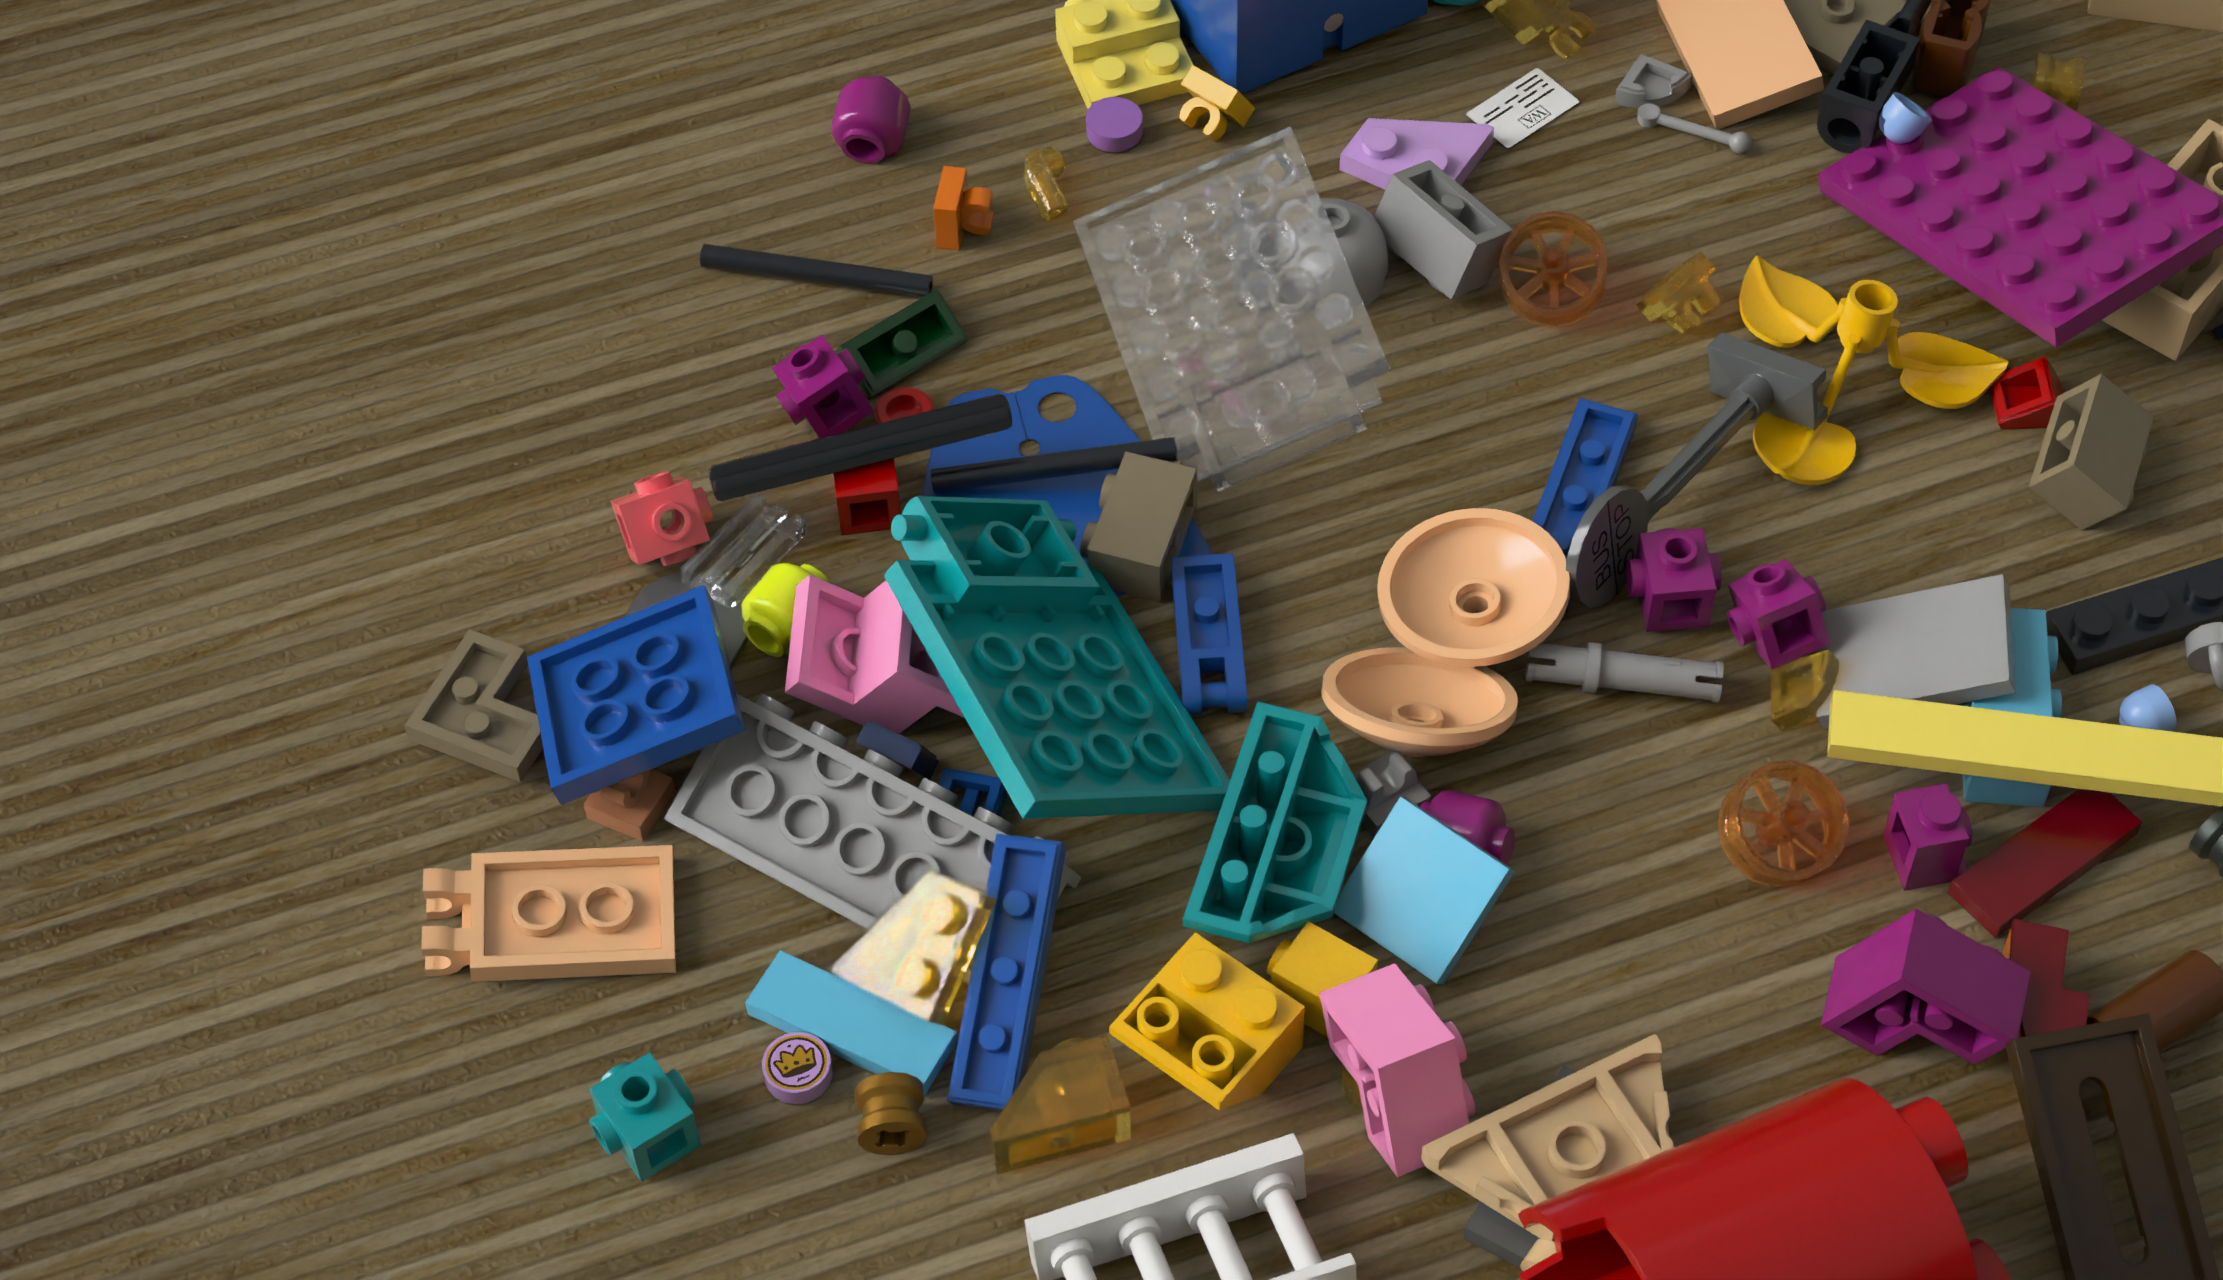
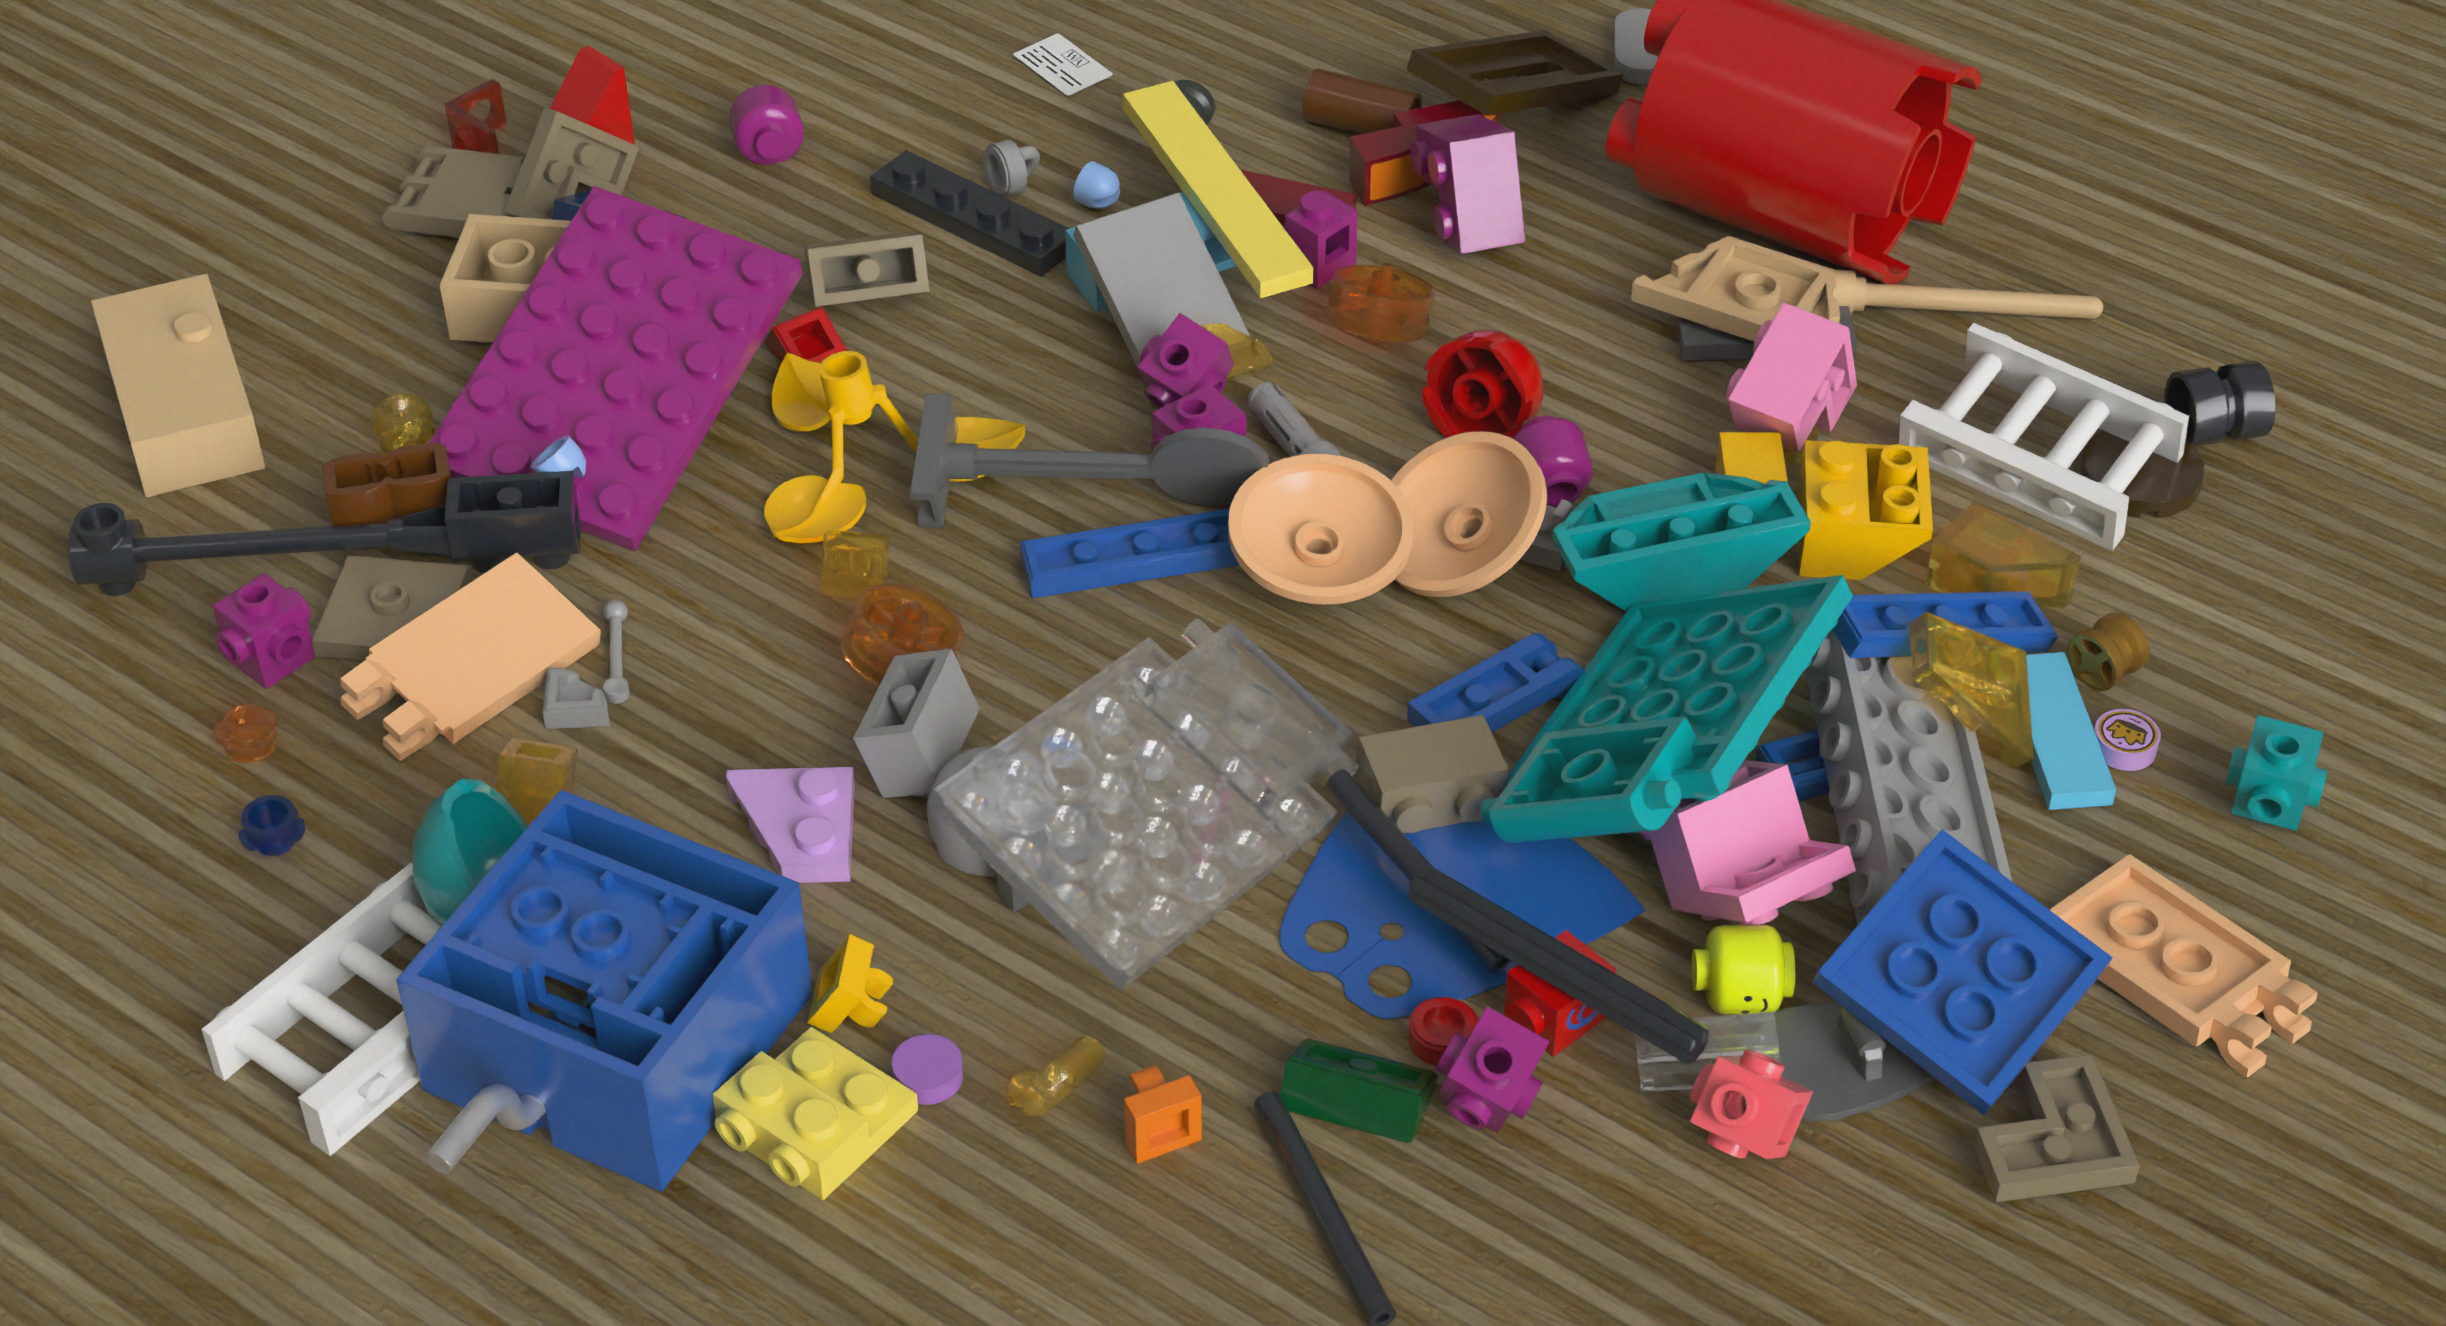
camera: 125 degrees left, 10 degrees down
(870, 119) = (1089, 1261): magenta head -> none
(899, 749) = (1818, 803): dark blue tile -> none
(1422, 890) = (1620, 443): medium azure tile -> none
(1523, 107) = (664, 784): white sticker -> none
(1590, 833) = (1482, 384): none -> red cylinder

